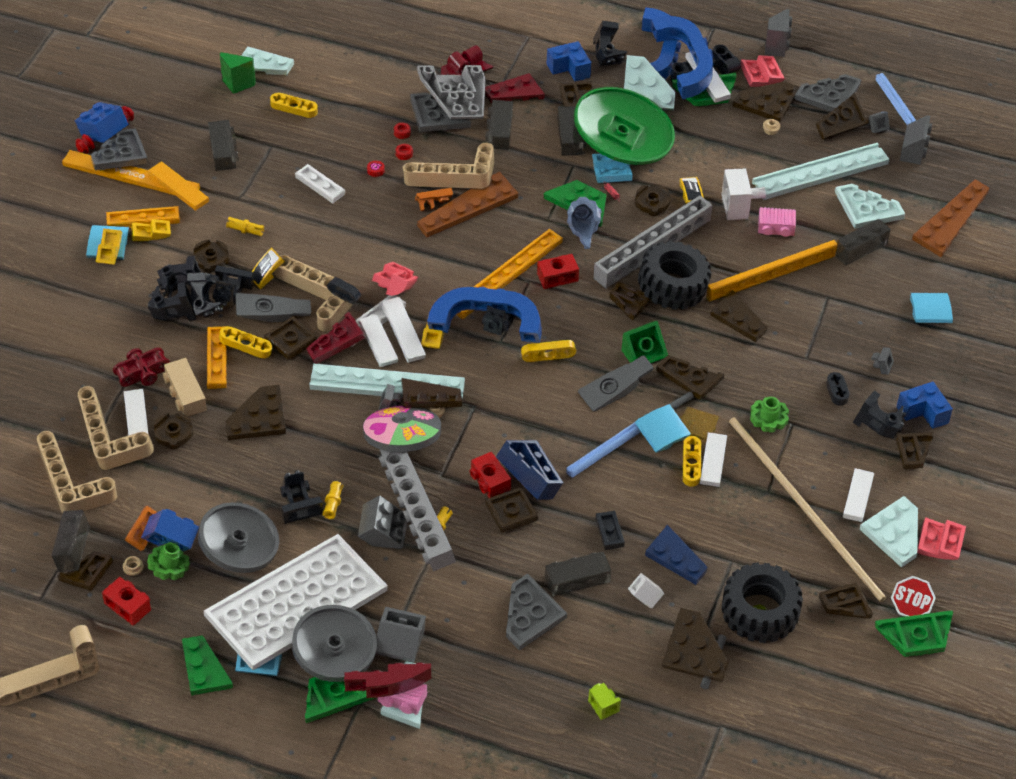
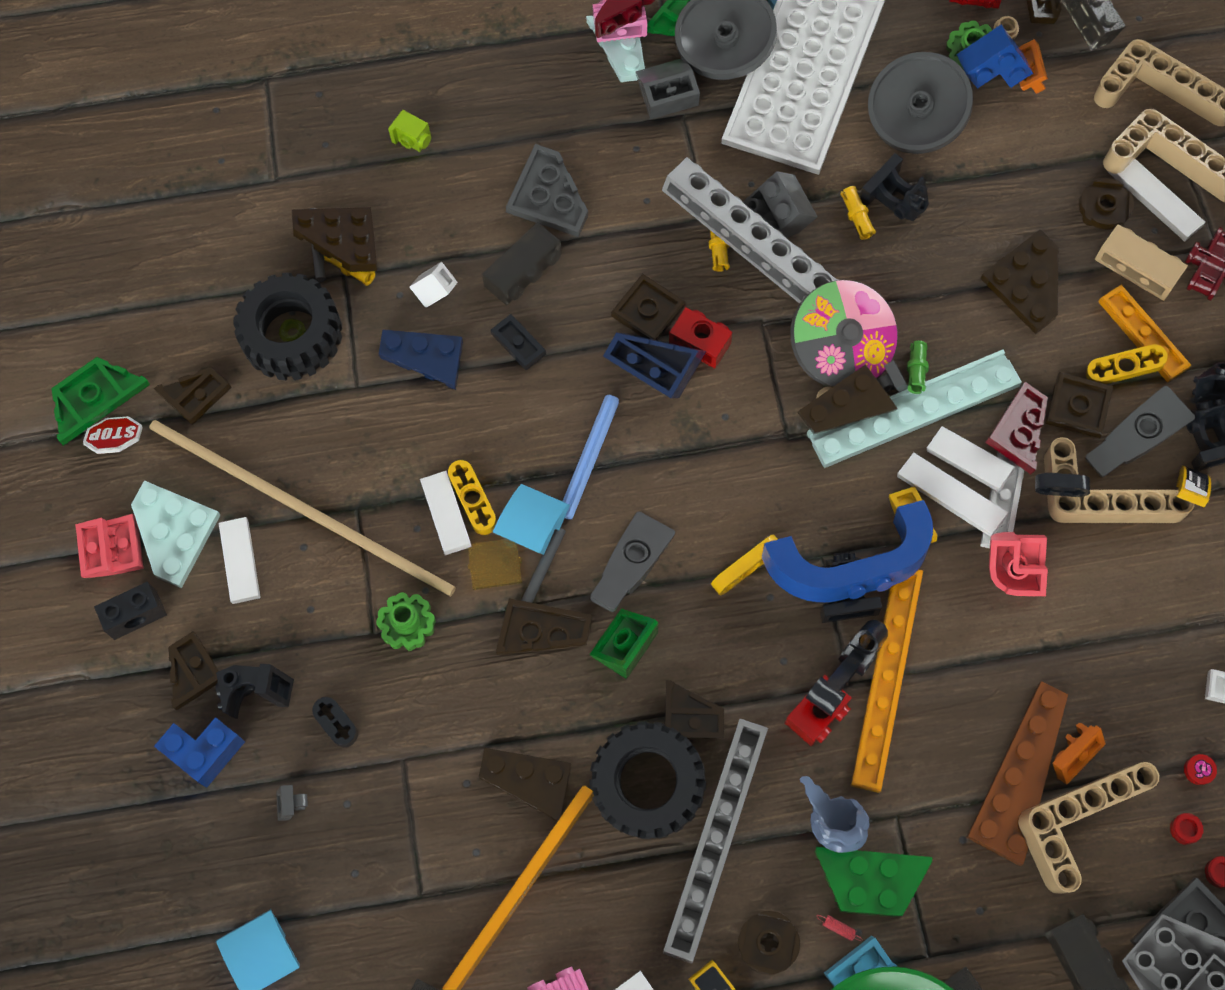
camera: 155 degrees right, 20 degrees up
(369, 397) = (917, 367): none -> bright green pin
(520, 281) = (855, 659): none -> black piece
(940, 492) = (130, 610): none -> black brick

